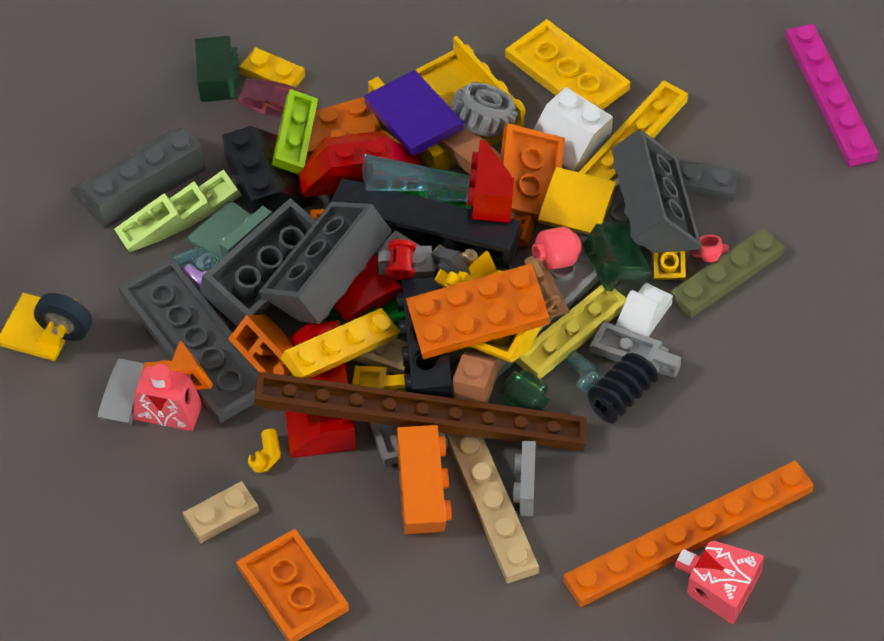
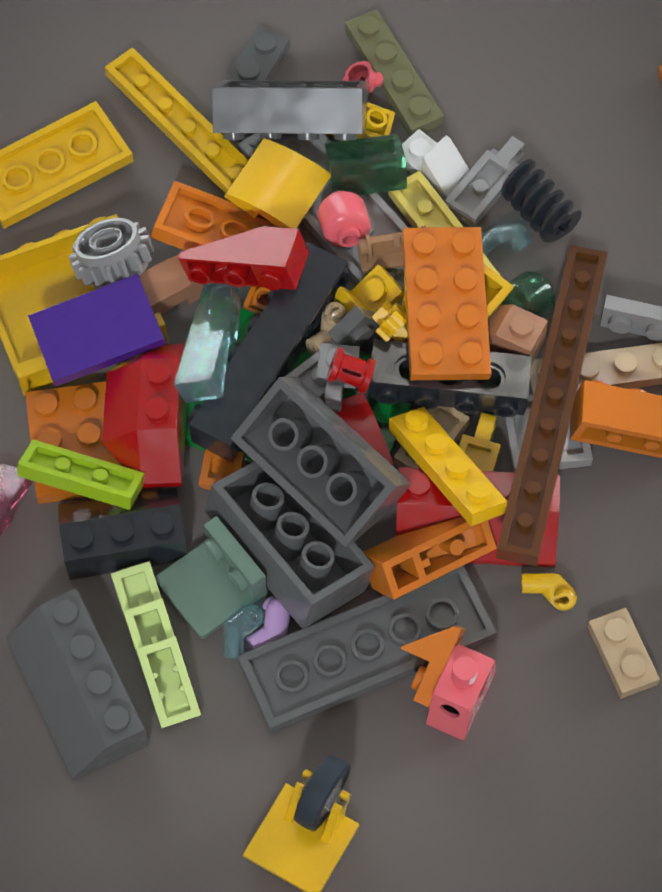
camera: 80 degrees left, 10 degrees up
(118, 397) = (429, 741): light grey slope -> none
(580, 123) = (145, 172): white slope -> none

